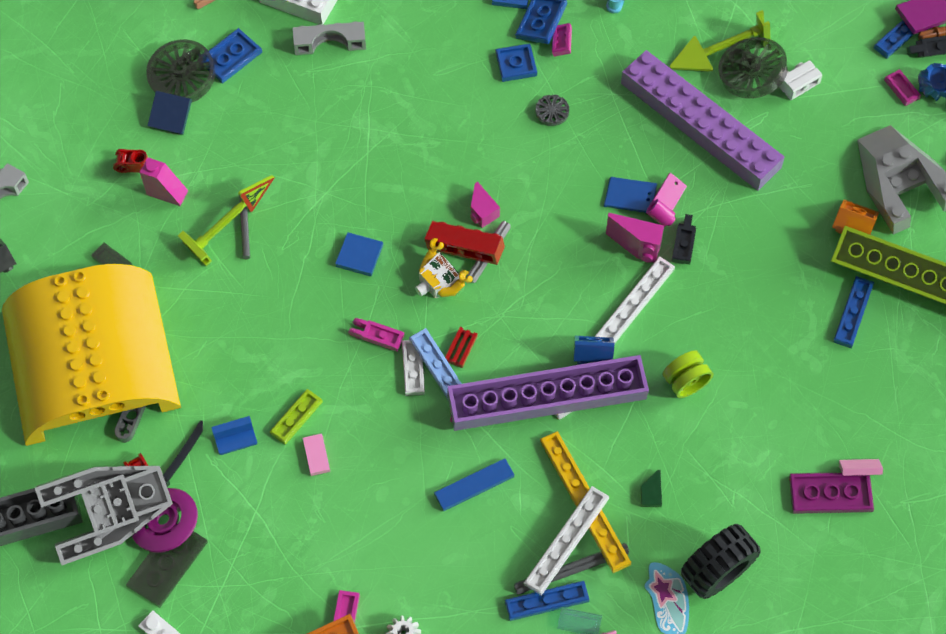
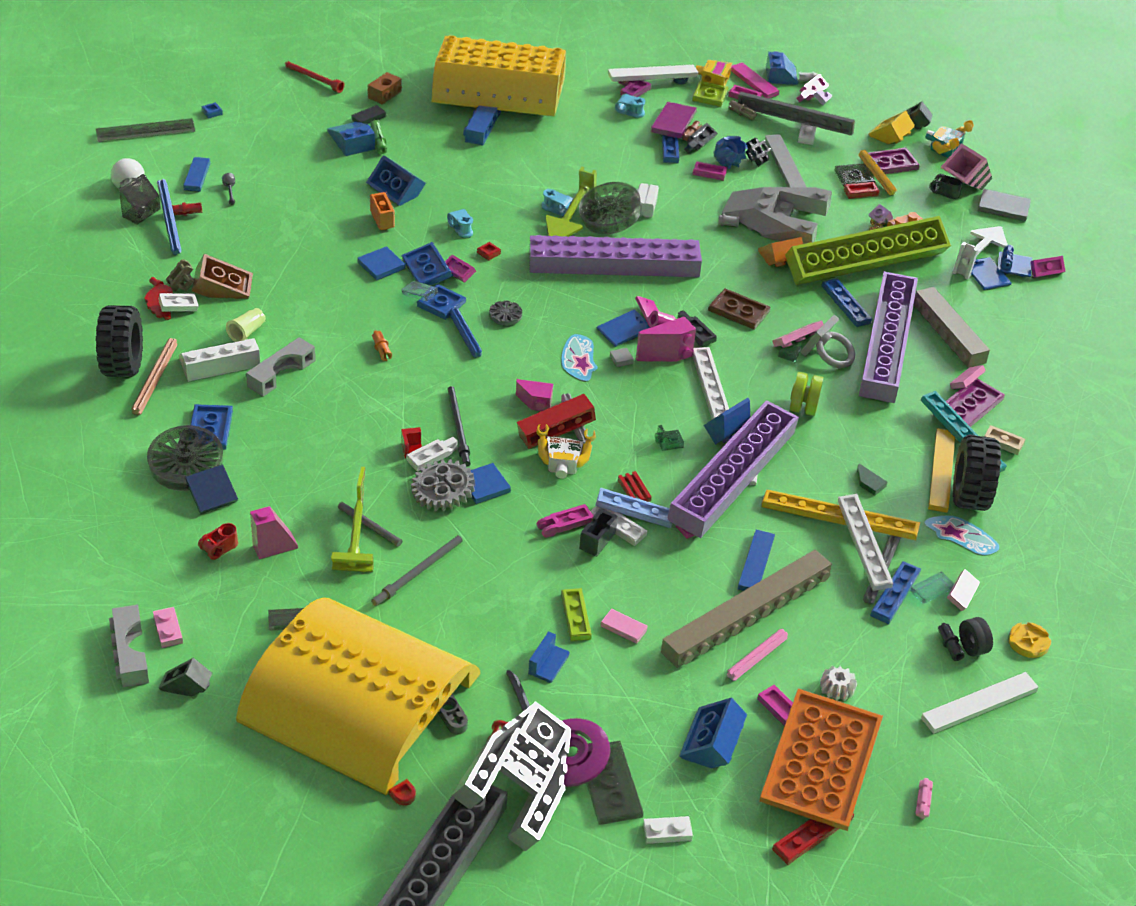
camera: 50 degrees left, 20 degrees down
(34, 203) = (167, 627): none -> bright pink plate
(37, 453) = (403, 793): none -> red tile
(195, 291) = (390, 590): none -> dark grey bar
(270, 593) = (714, 733): none -> blue slope
(308, 234) = (443, 485): none -> light grey gear
(345, 178) = (410, 440): none -> red panel
(349, 199) = (429, 453): none -> white hinge
(376, 214) = (463, 449): none -> black bar
(381, 364) = (598, 532): none -> black brick
(385, 559) = (757, 654): none -> bright pink axle
(416, 517) = (745, 608): none -> dark tan brick
(423, 72) = (381, 345): none -> orange axle
(500, 106) = (465, 332): none -> blue axle
(506, 40) = (420, 291): none -> clear light blue tile
(538, 325) = (668, 439): none -> clear green bracket
(562, 194) = (578, 357): none -> sticker
(594, 221) = (621, 357): none -> light grey tile
(610, 39) = (489, 251): none -> red tile
(719, 27) = (557, 203): none -> medium azure piece
(739, 323) = (790, 353): none -> clear green tile
(746, 516) = (941, 471): none -> yellow tile
(750, 247) = (739, 308): none -> reddish brown tile
(765, 311) = (798, 334): none -> bright pink plate
(770, 332) = (821, 337): none -> light grey tile
(783, 514) = (949, 418): none -> teal tile
(813, 549) = (1008, 441): none -> tan plate
(837, 374) = (888, 337): none -> medium lavender brick
(847, 149) = (728, 220): none -> light grey pin
(911, 409) = (951, 327): none -> brick

